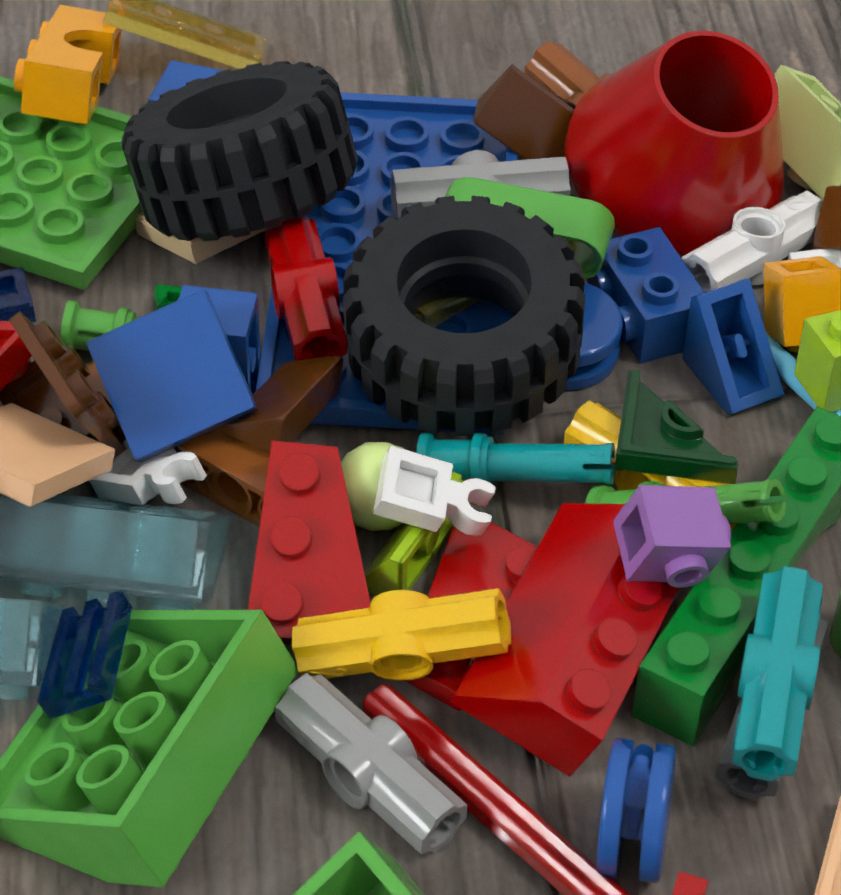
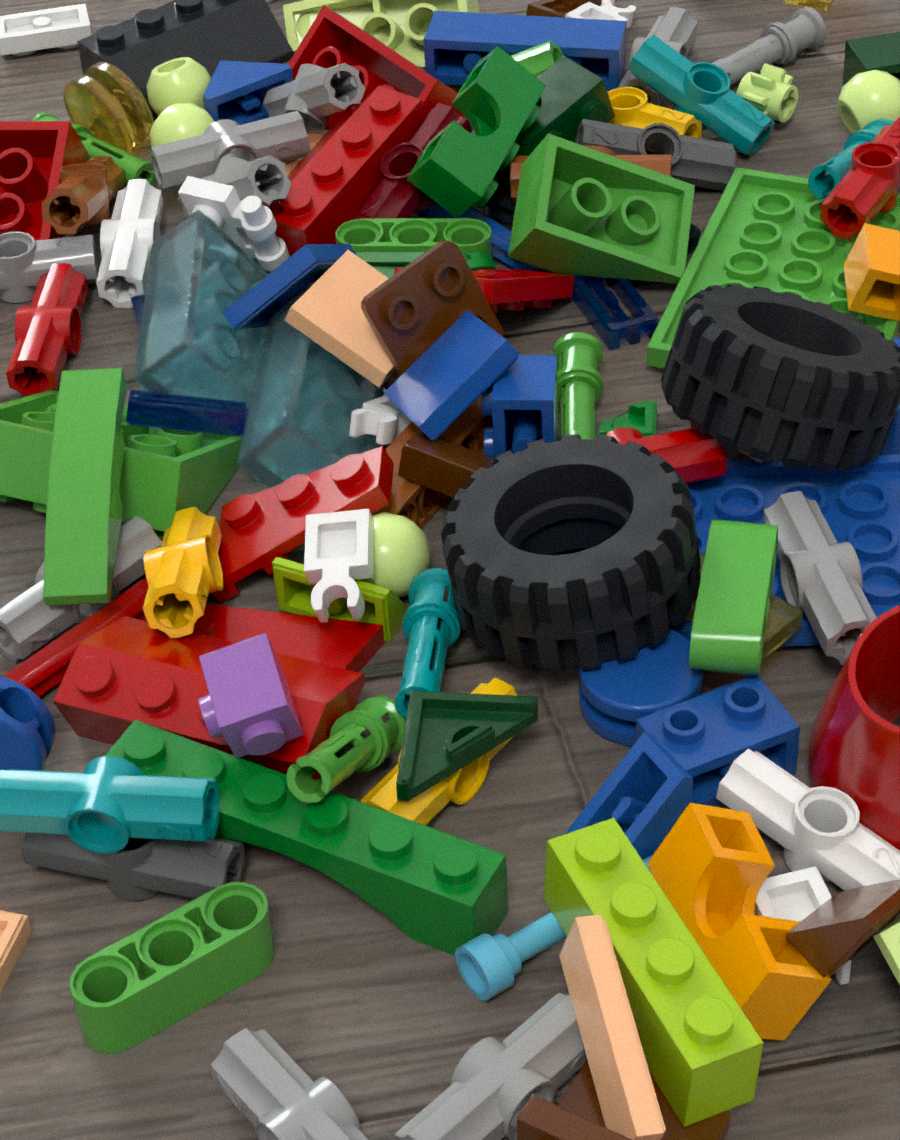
camera: 90 degrees right, 5 degrees down
(291, 689) = (84, 487): none -> bright green slope

